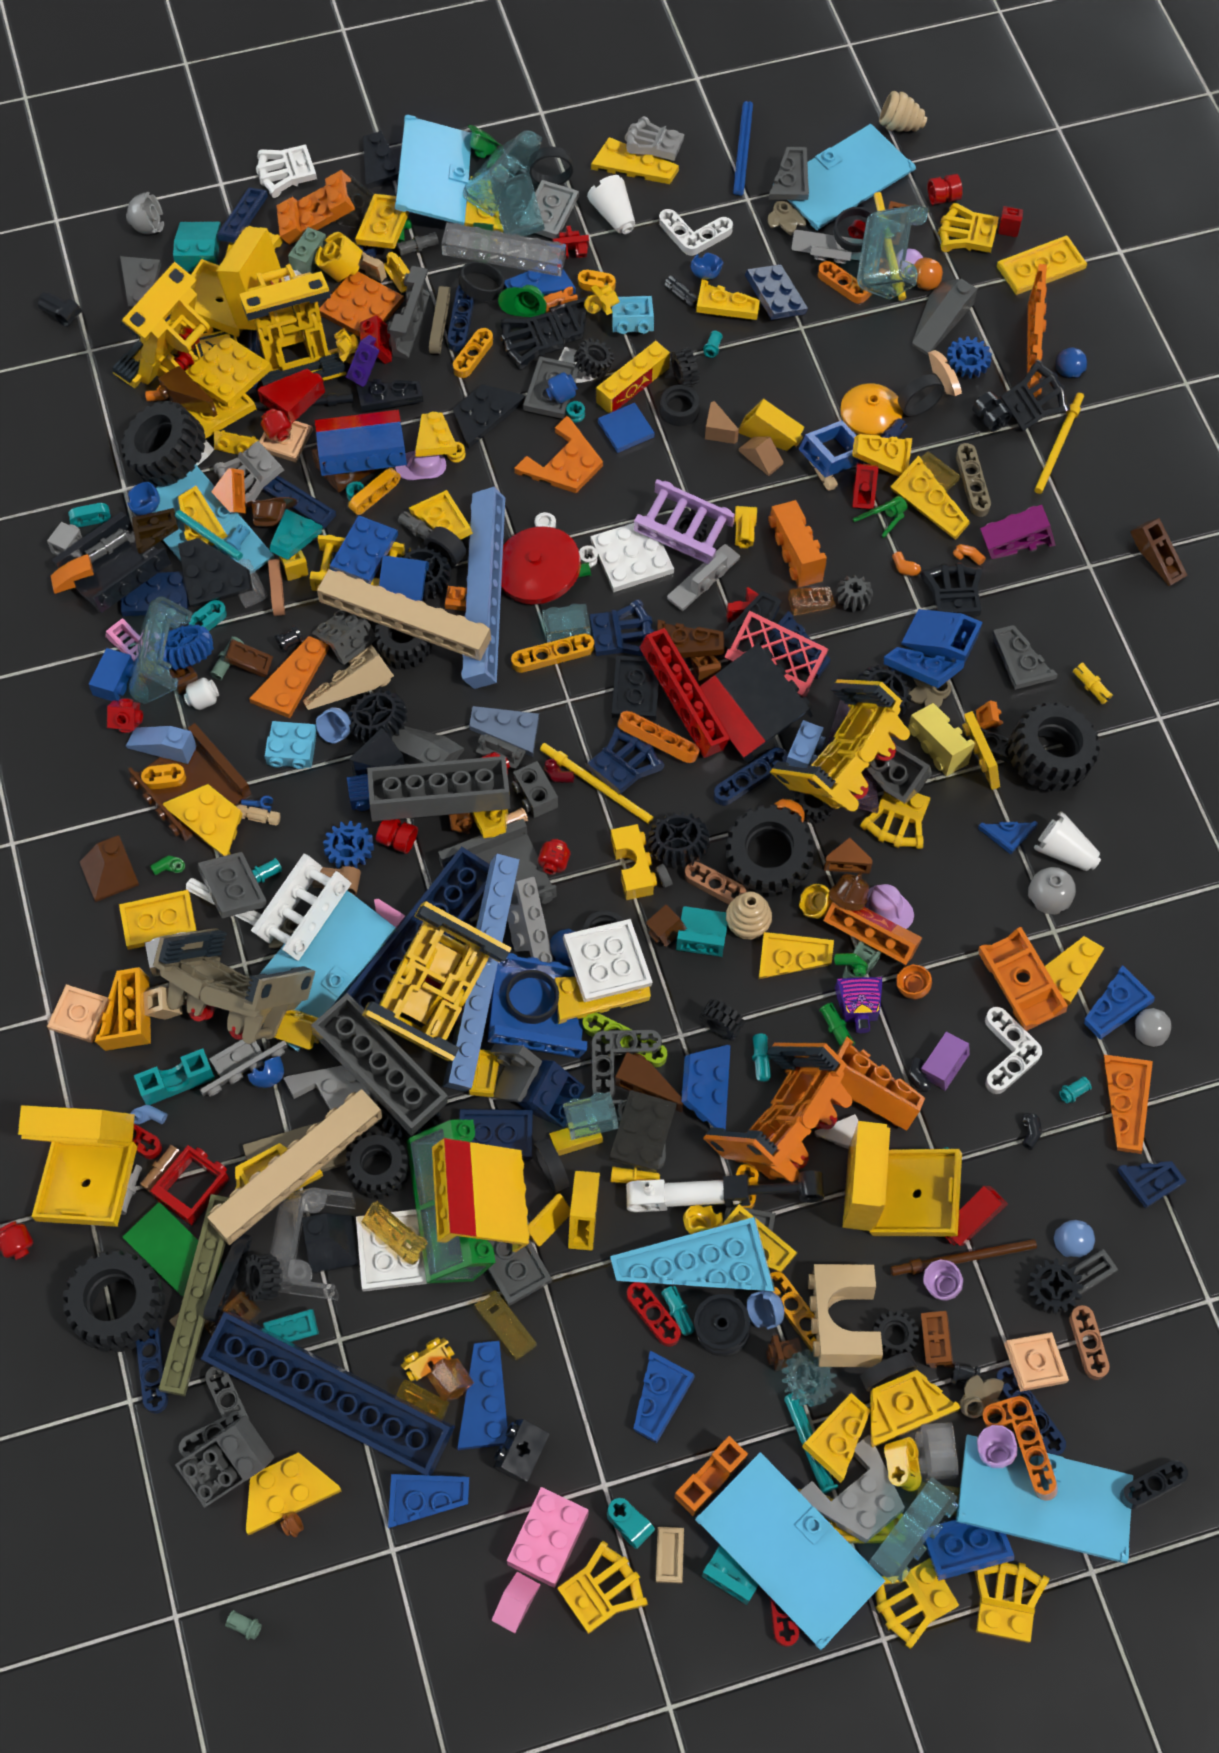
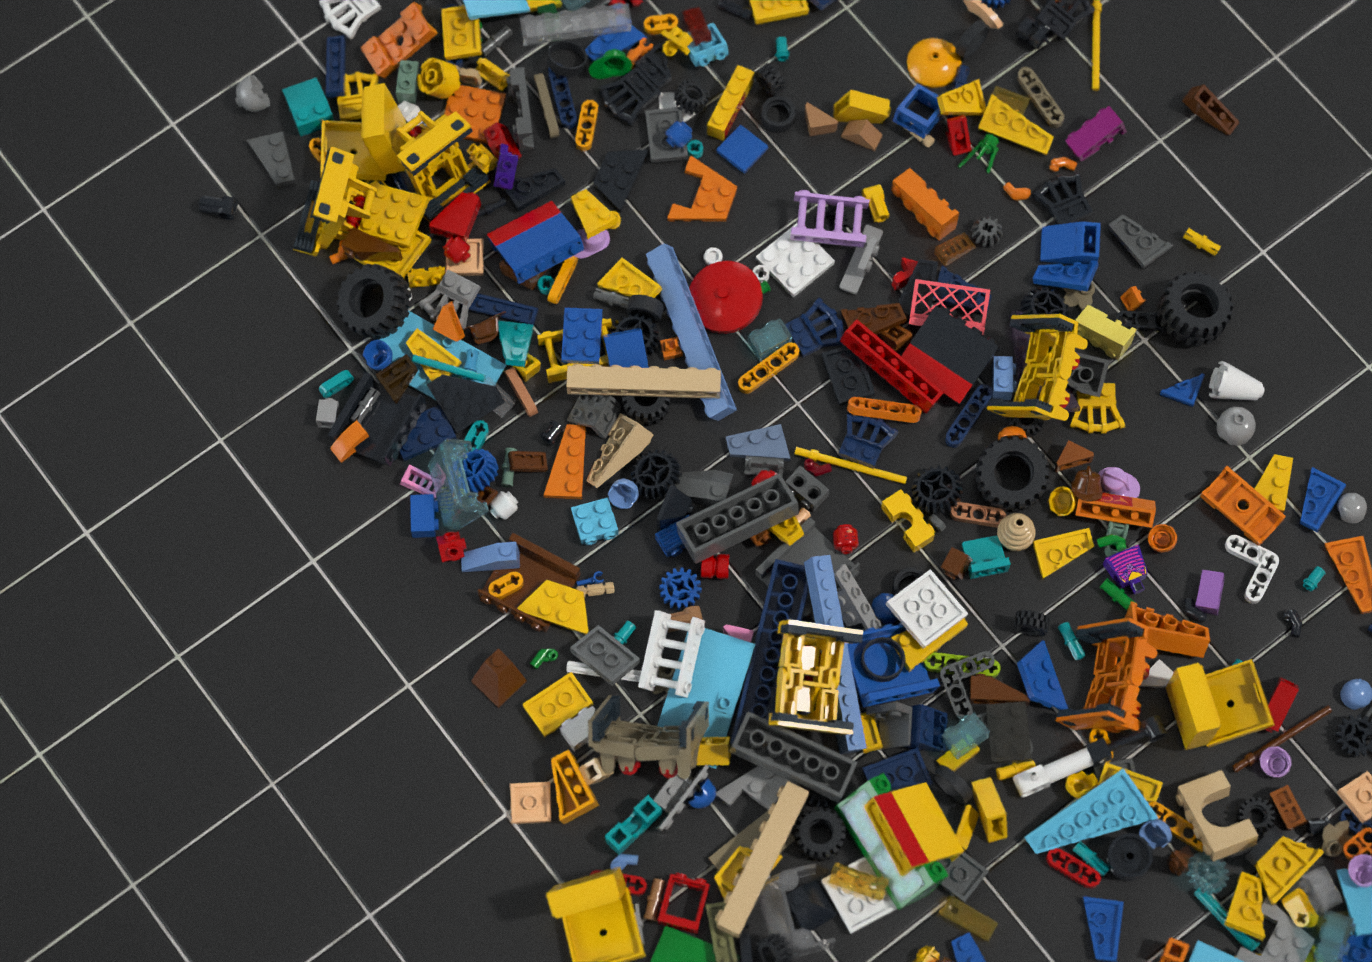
camera: 20 degrees left, 5 degrees up
(632, 292) = (697, 26): none -> clear red plate
(982, 749) = (1142, 331): yellow wing -> none

